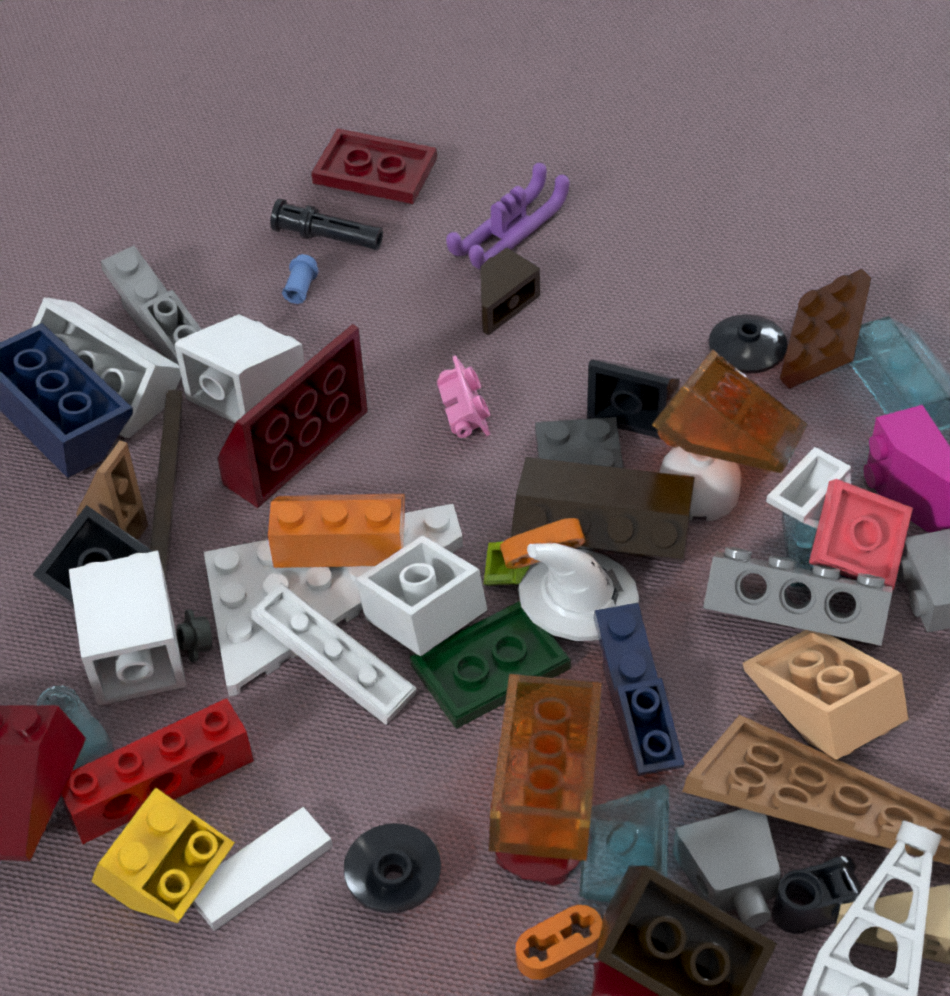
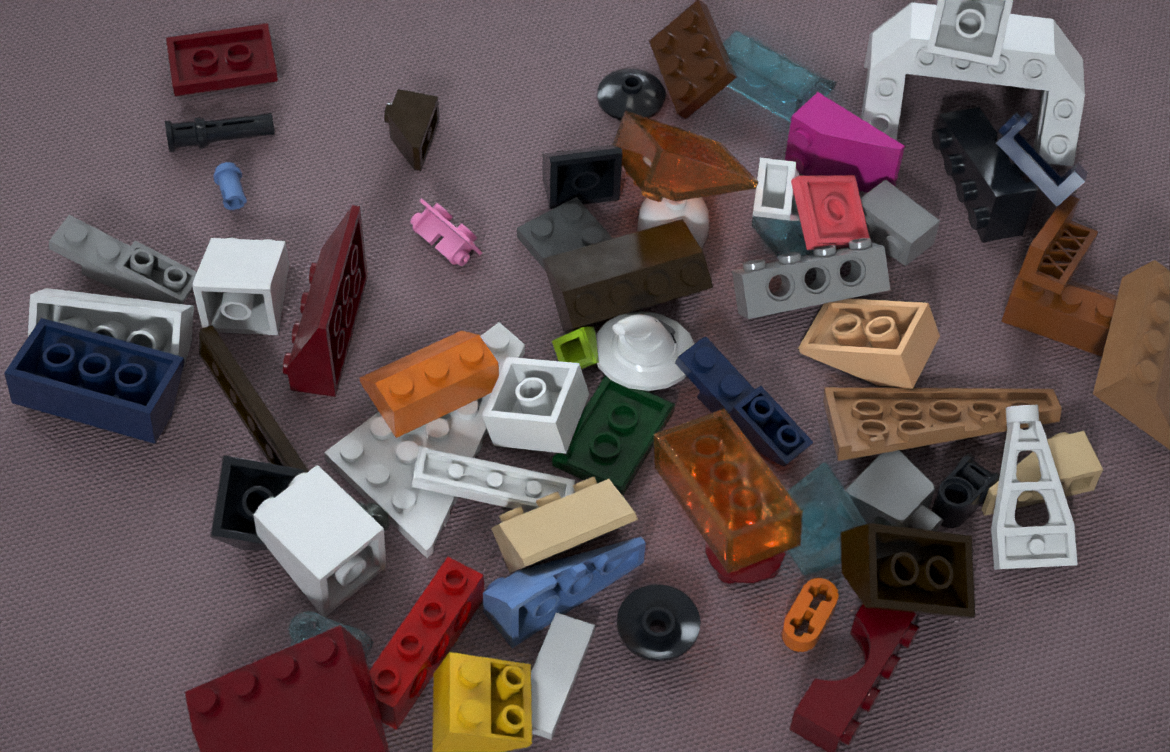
camera: 35 degrees left, 5 degrees up
(116, 493) = (223, 435): medium nougat slope -> none
(285, 778) = (533, 595): none -> medium blue wedge
(359, 720) = (561, 522): none -> tan slope
(510, 219) = (373, 64): medium lavender piece -> none
(563, 532) = (601, 327): orange beam -> none

